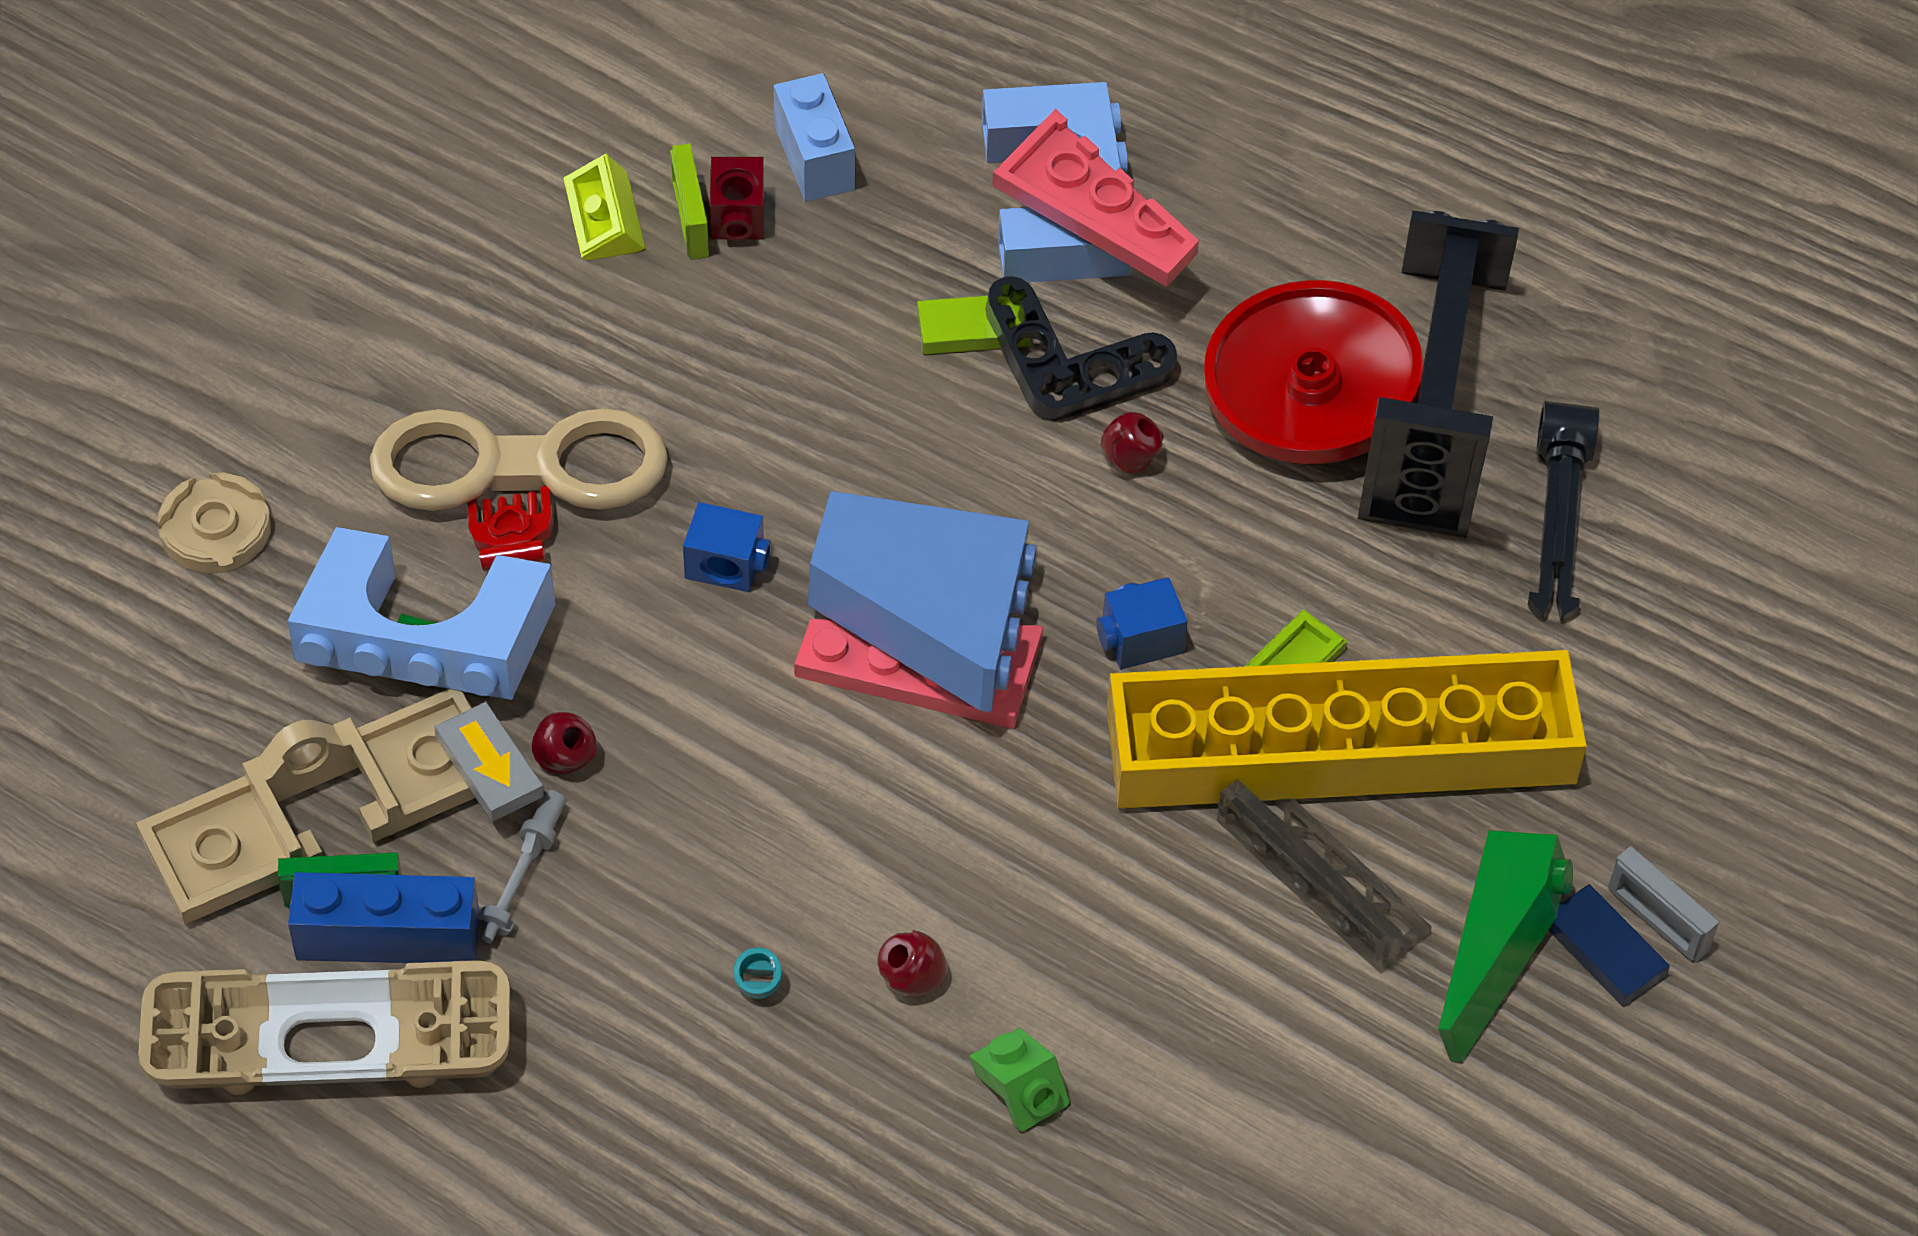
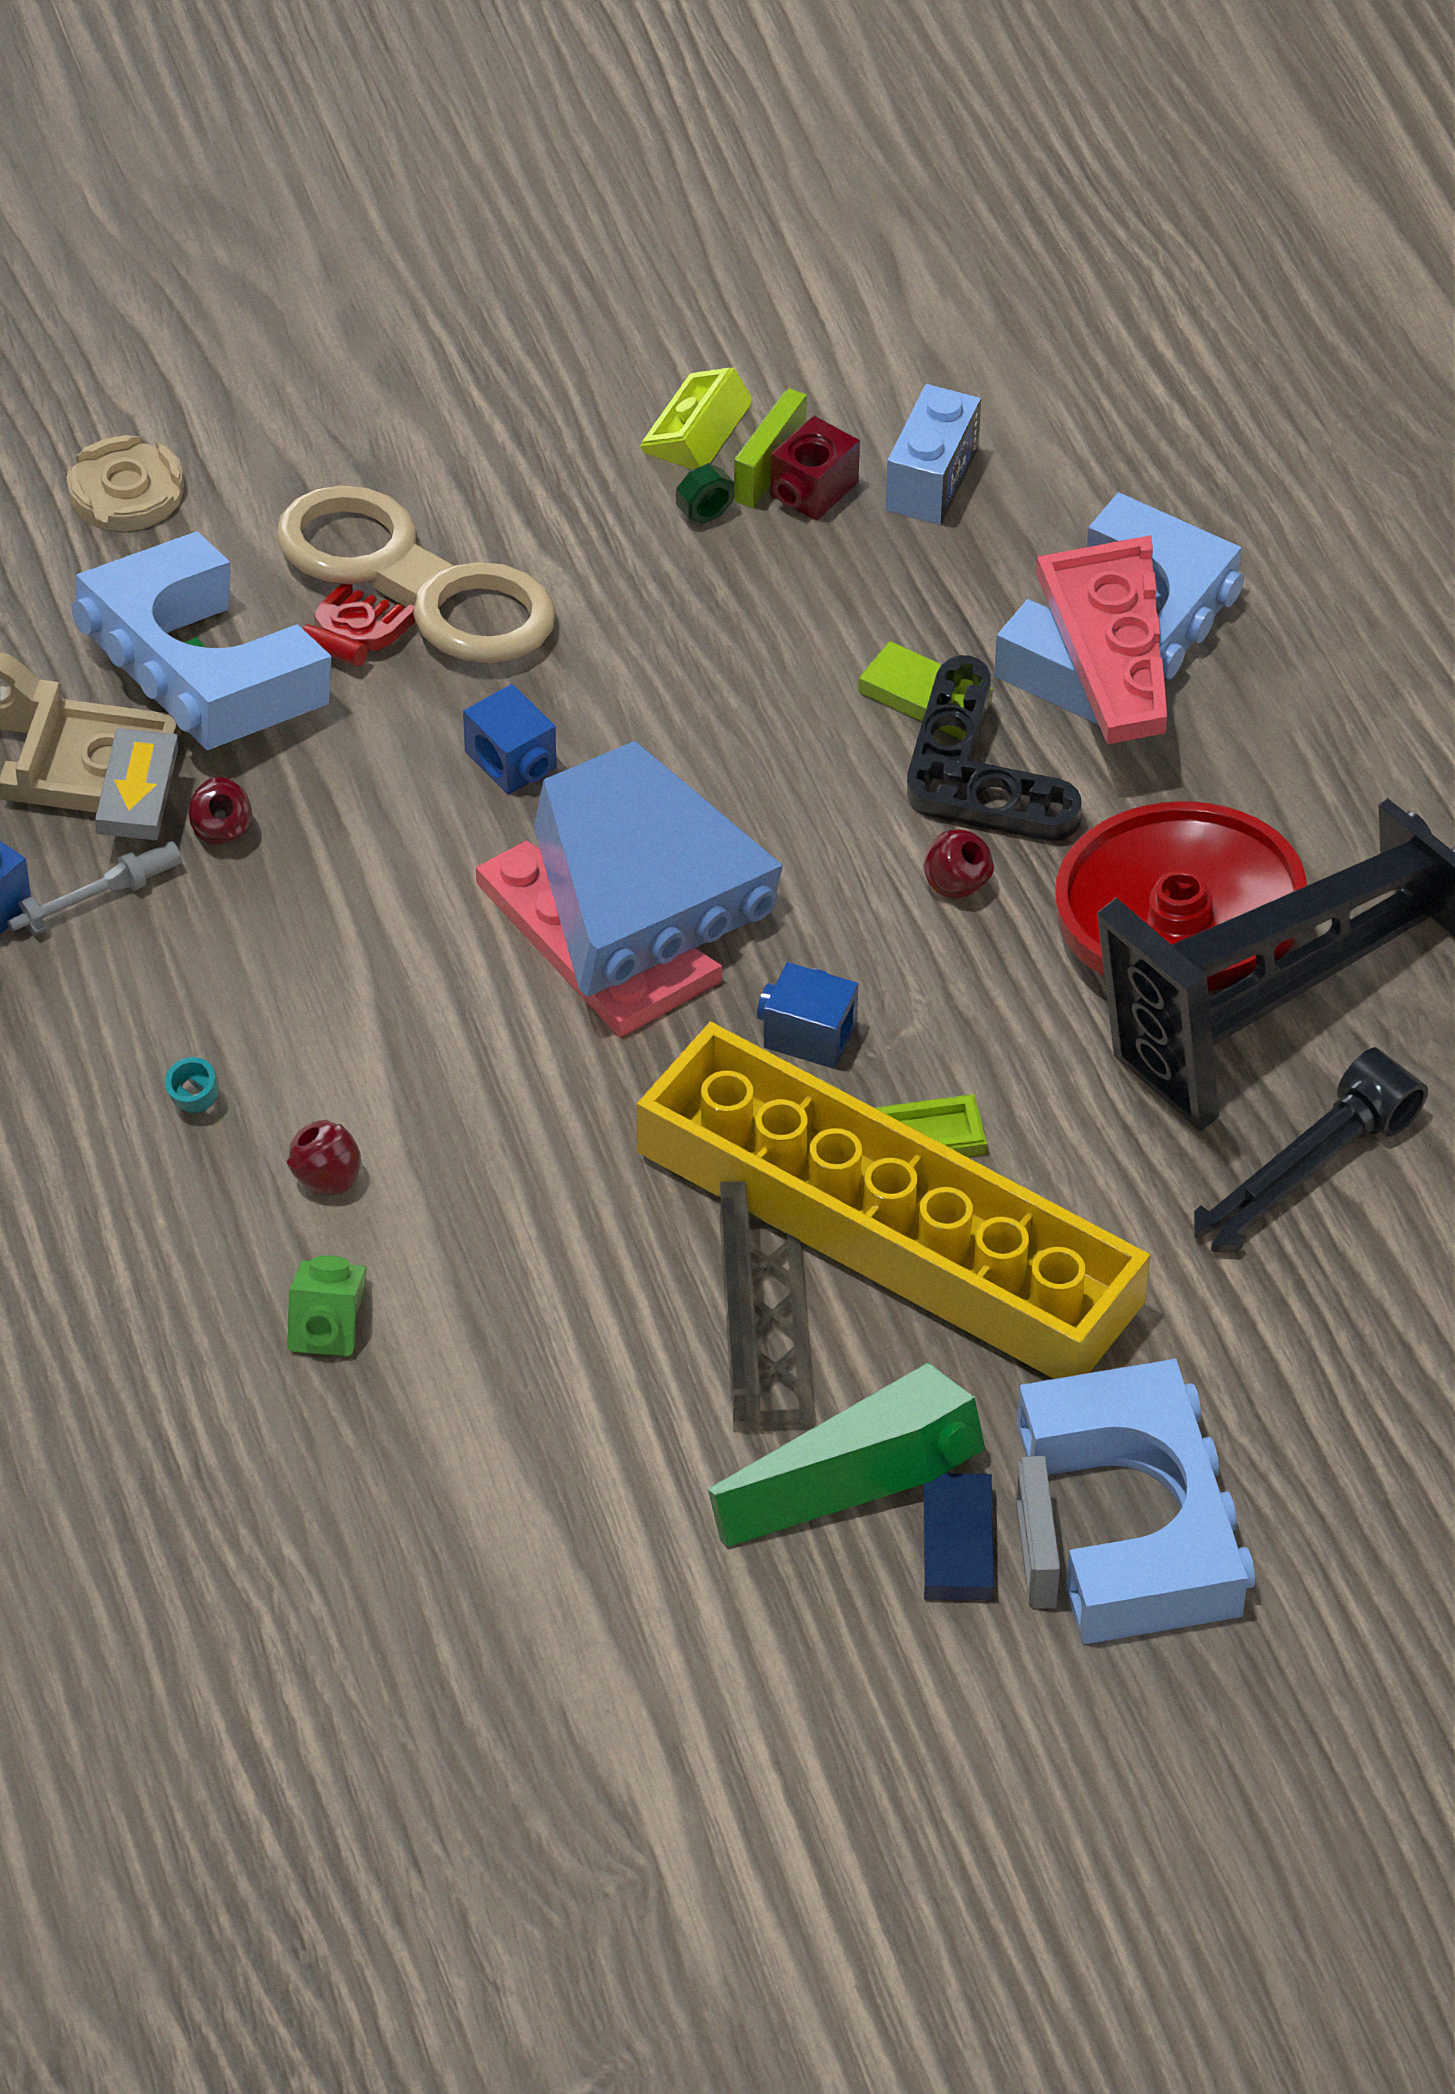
camera: 40 degrees right, 5 degrees down
(675, 265) = (705, 493): none -> dark green tile
(1661, 774) = (1146, 1423): none -> light blue arch

